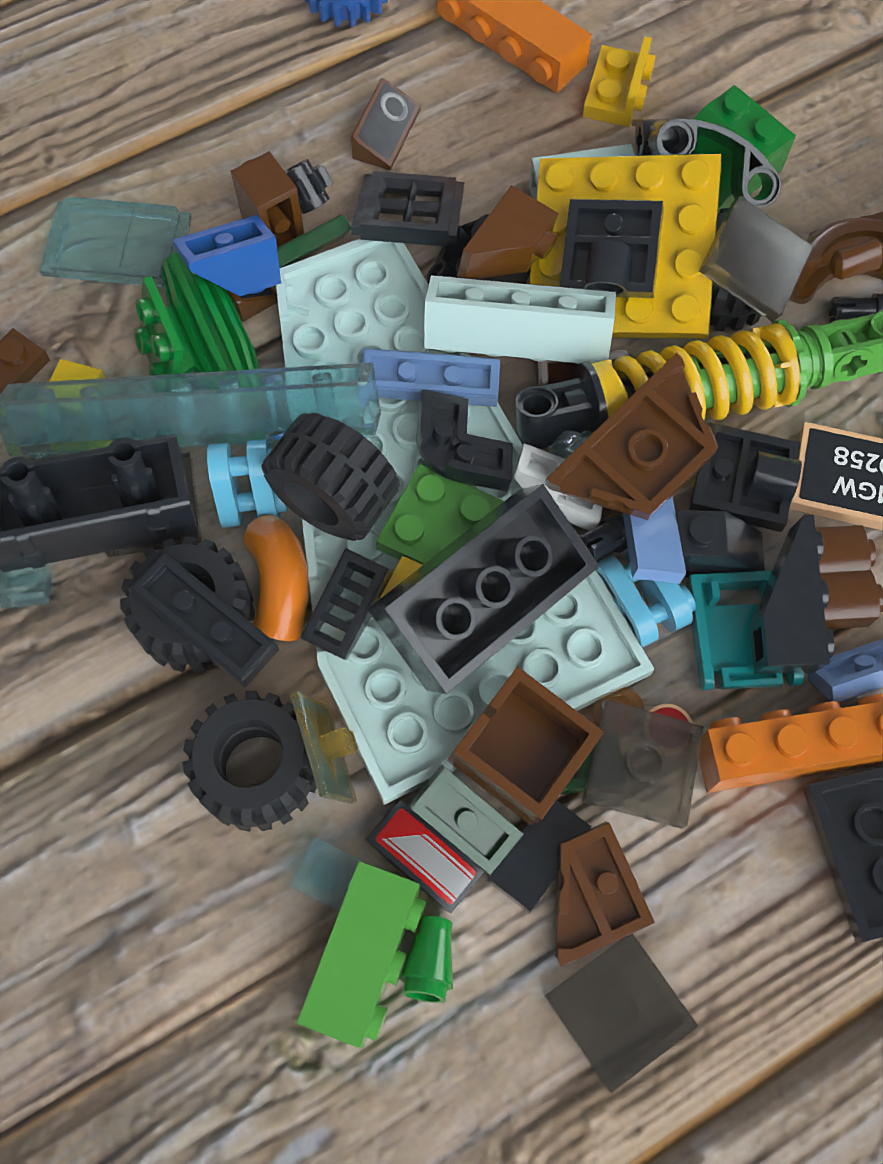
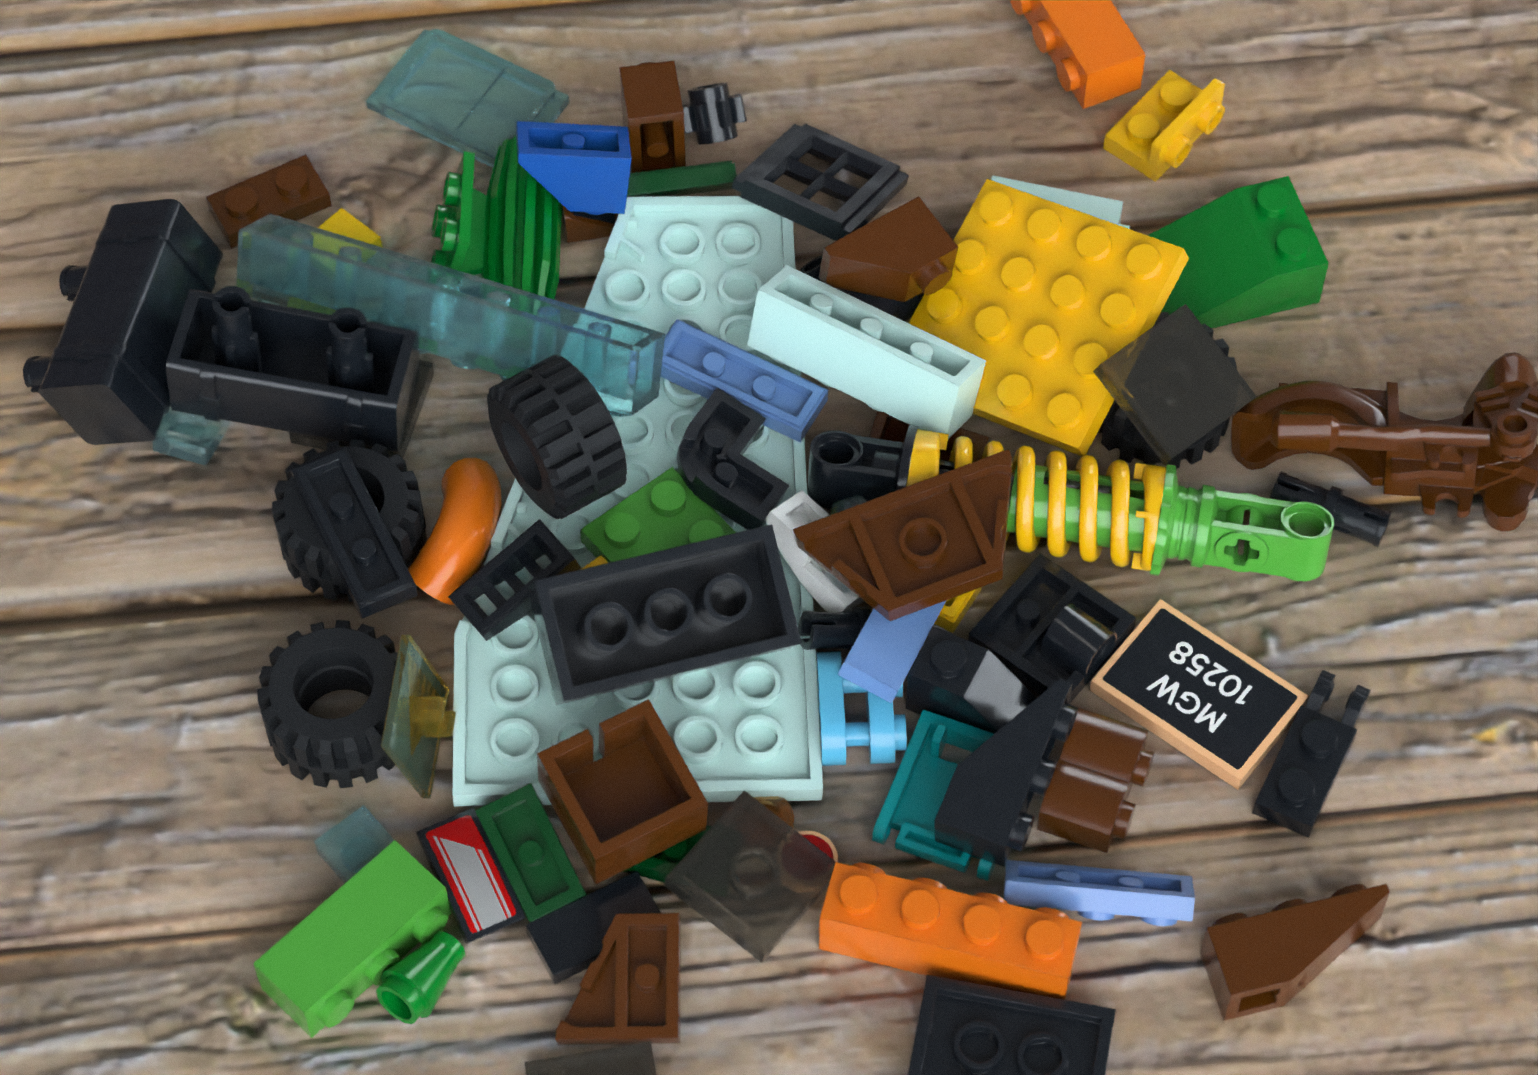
camera: 25 degrees right, 10 degrees down
(223, 475) = (450, 412): medium azure brick -> none
(384, 126) = (847, 74): slope -> none
(613, 246) = (1008, 308): black plate -> none
(679, 137) = (1156, 210): black panel -> none

